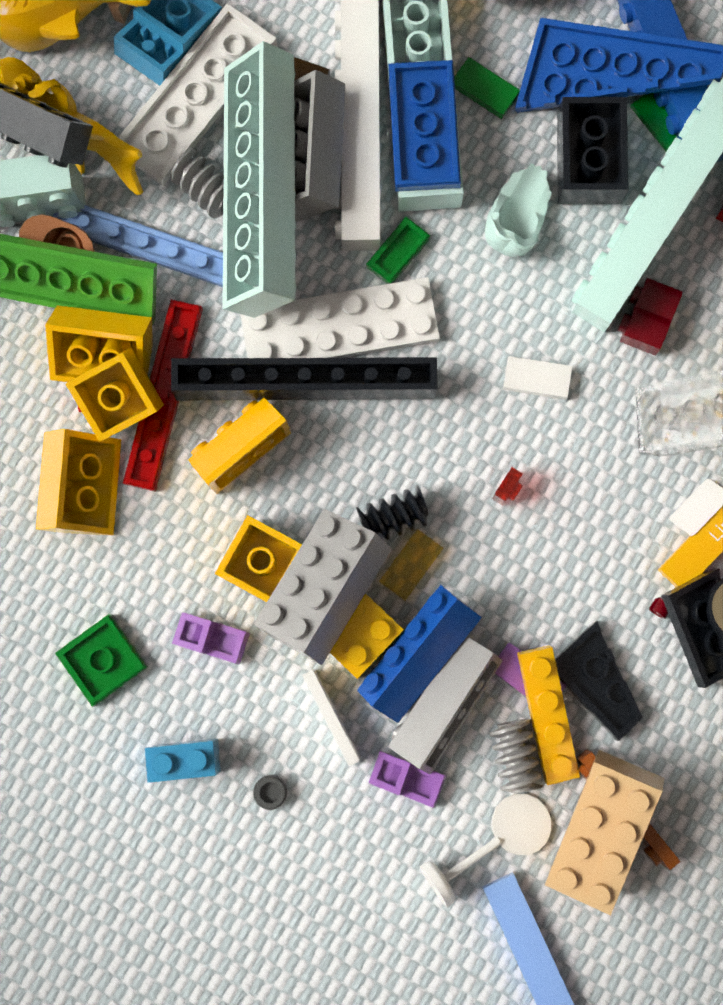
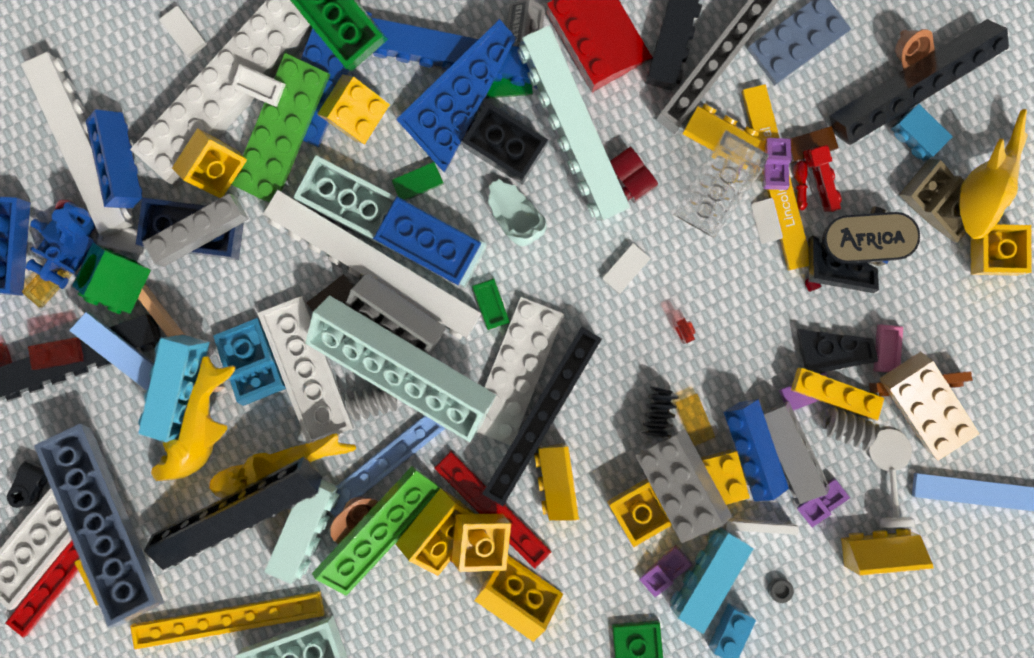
camera: 70 degrees left, 5 degrees up
(231, 692) = (710, 579): none -> medium azure brick
(393, 889) = (885, 552): none -> yellow slope
(645, 744) = (888, 347): none -> bright pink tile

